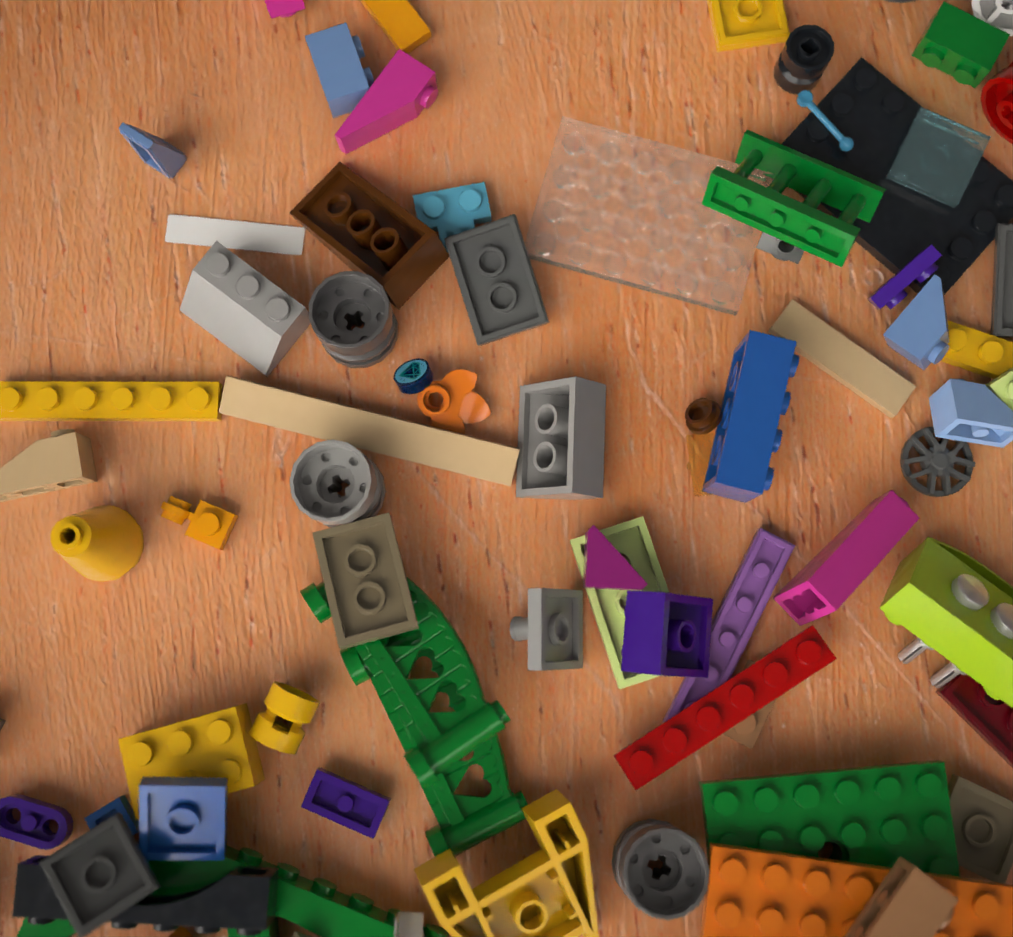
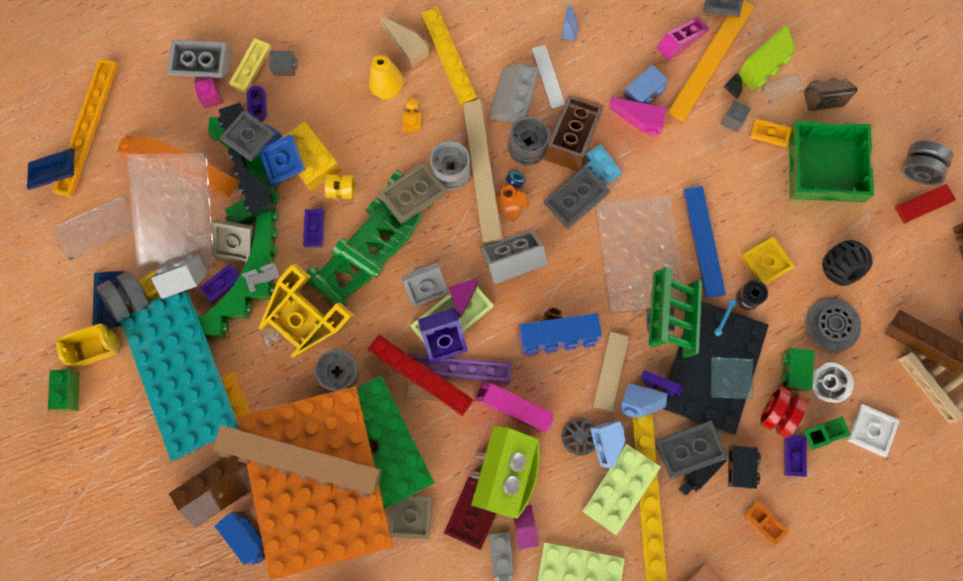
camera: 70 degrees right, 5 degrees down
(668, 98) = (704, 242): none -> blue tile

